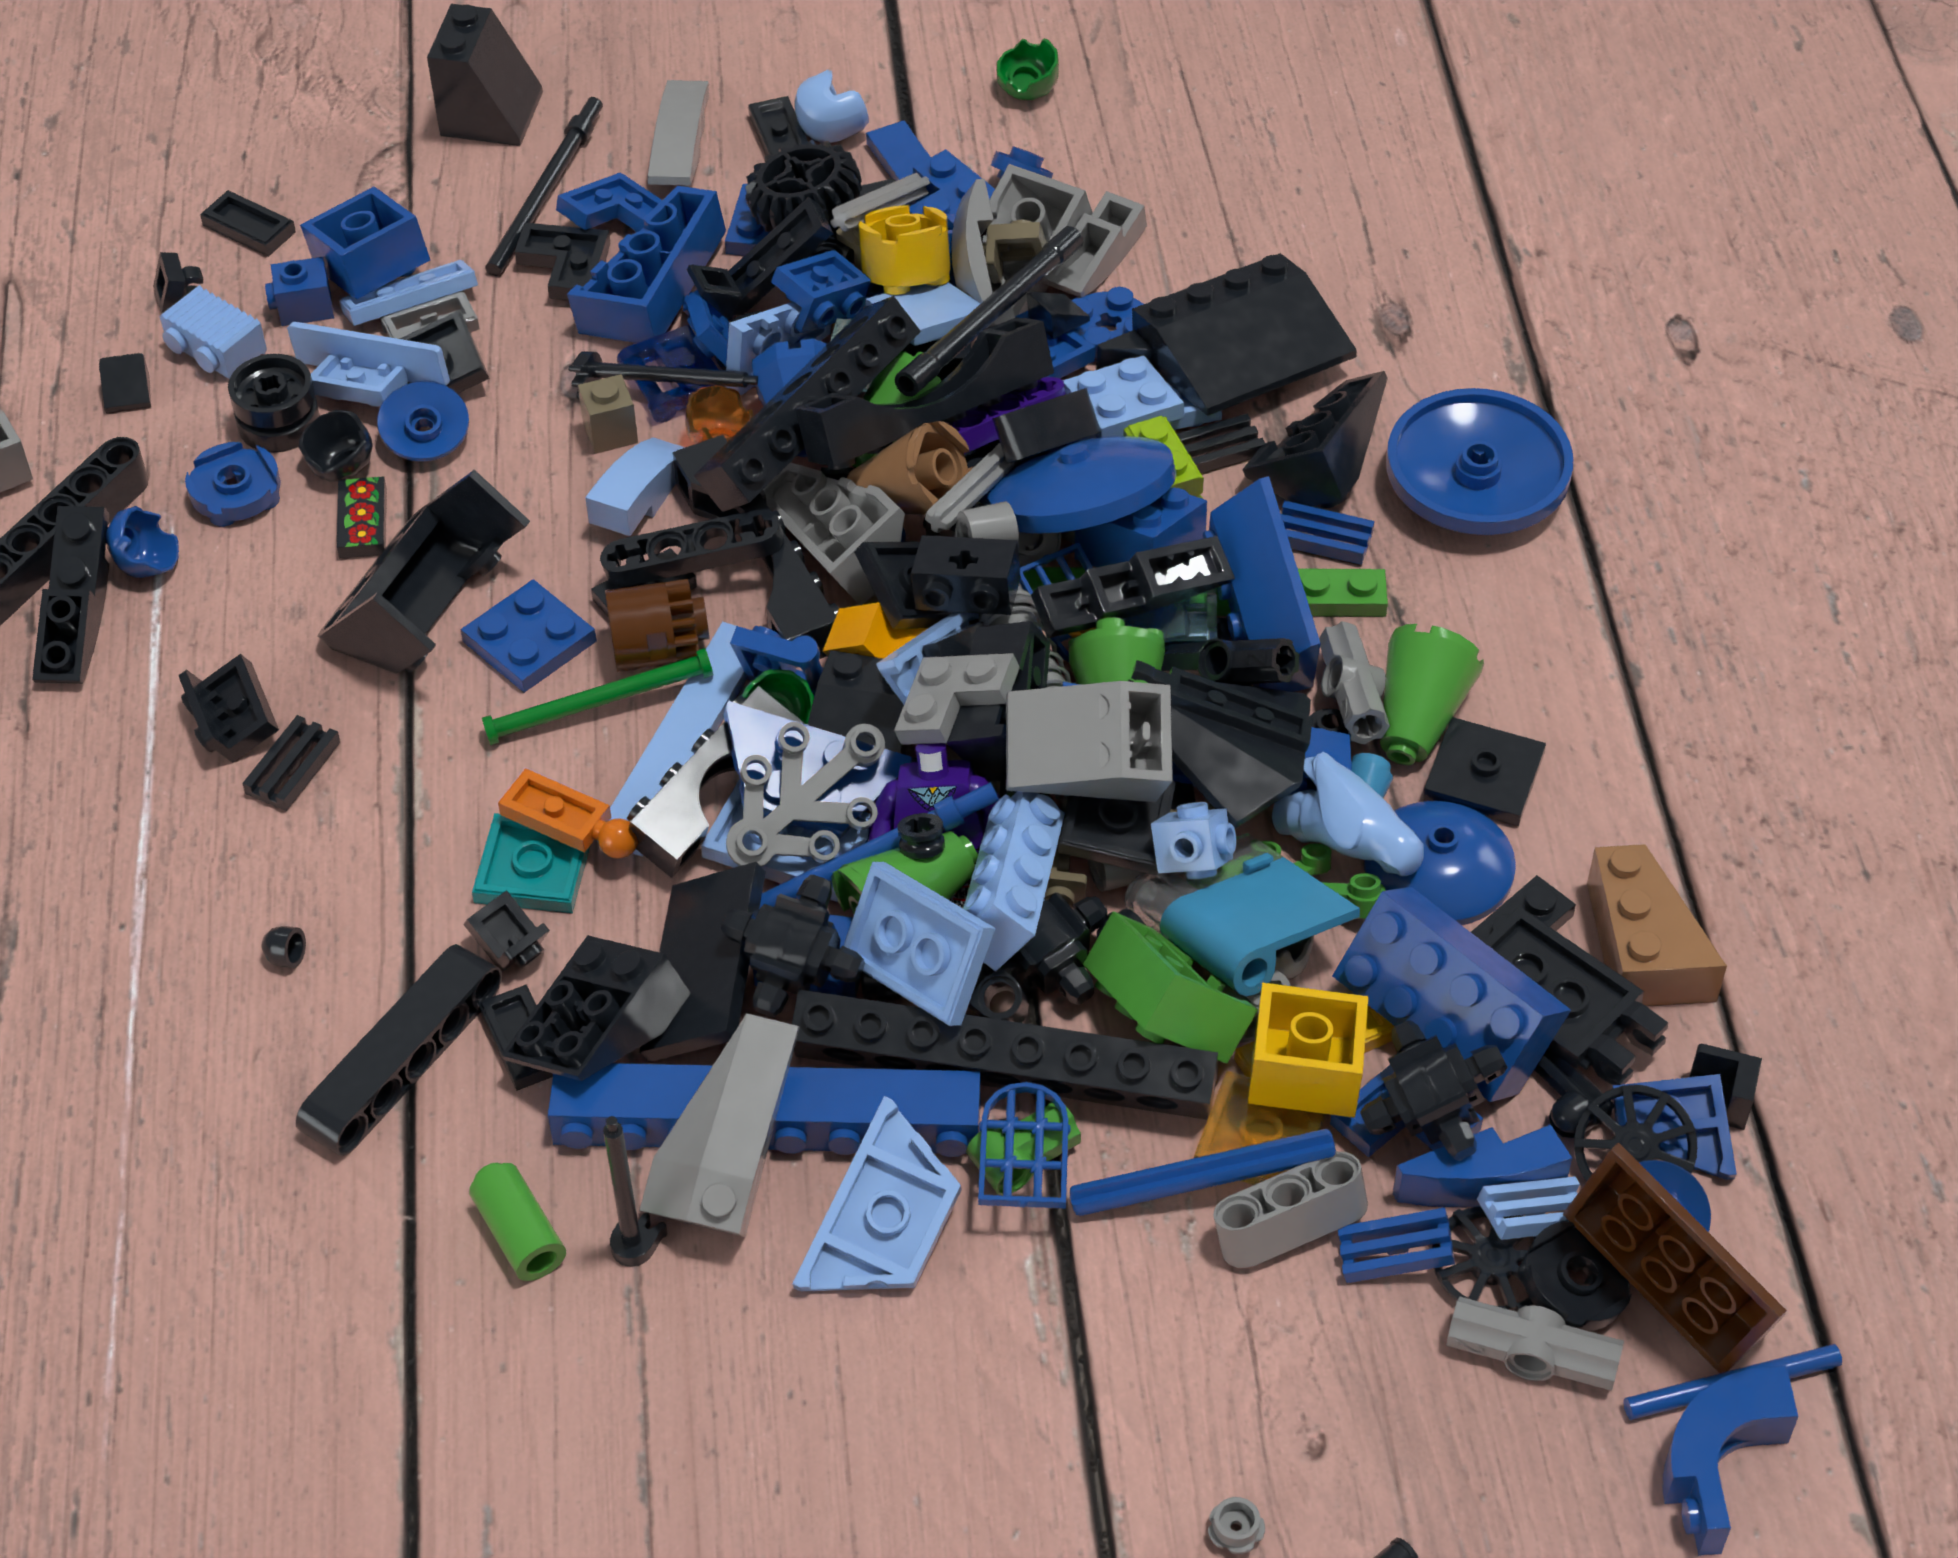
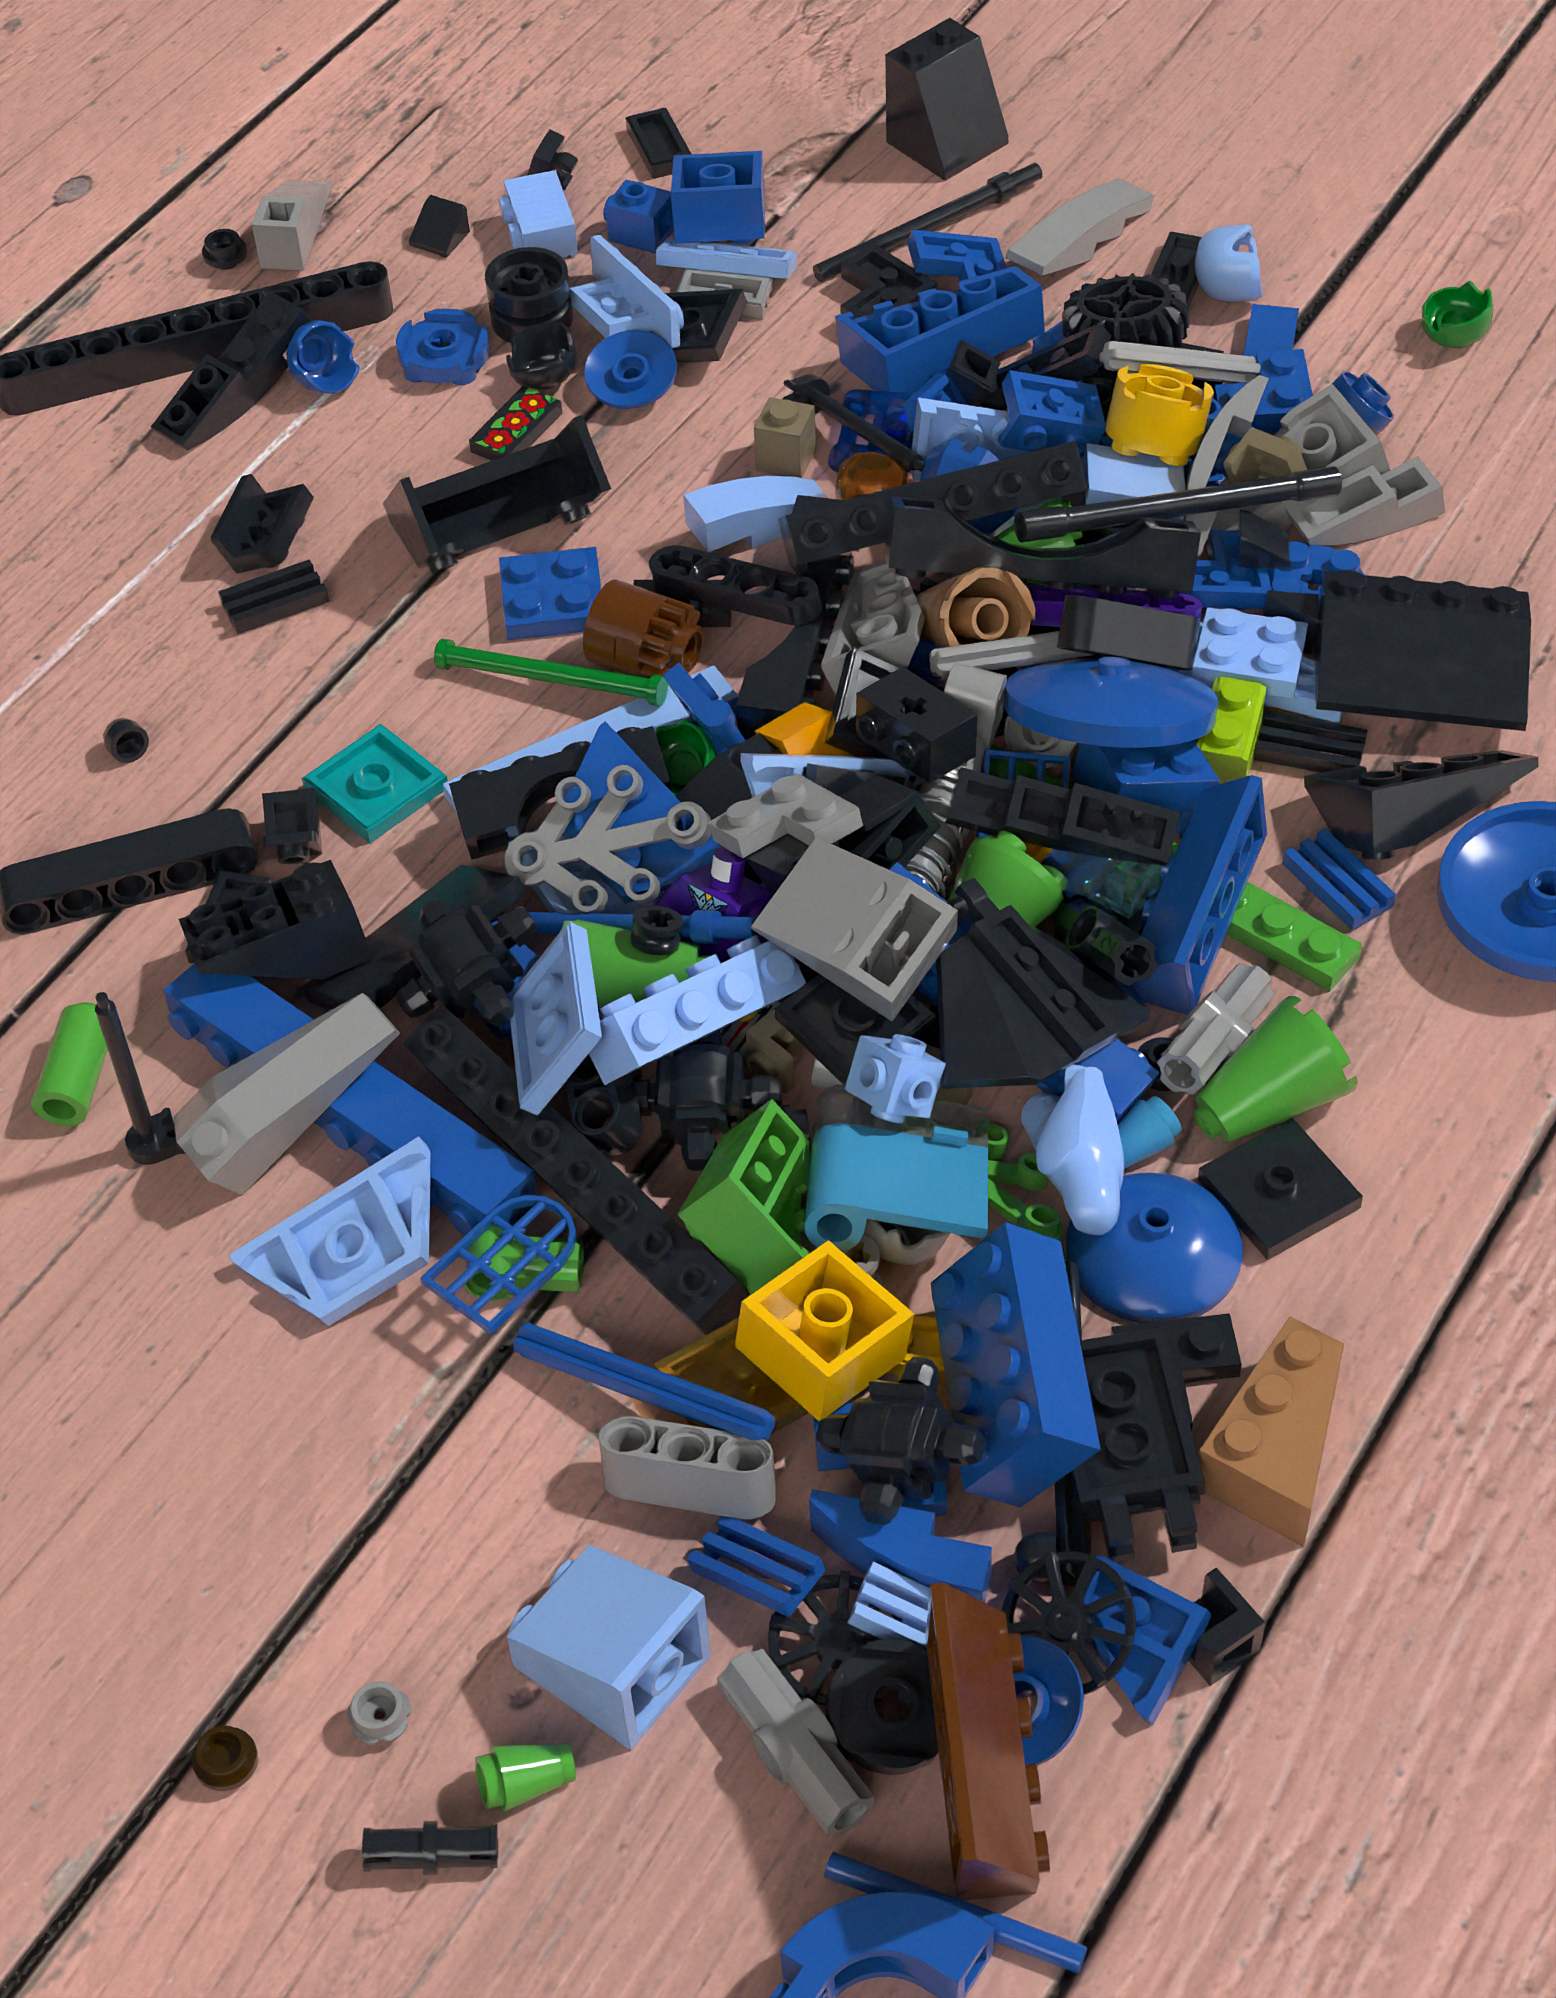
camera: 40 degrees right, 0 degrees up
(566, 815) = (420, 753): orange plate -> none
(1356, 1359) = (612, 1642): none -> light blue slope
(1376, 1494) = (522, 1773): none -> bright green cone

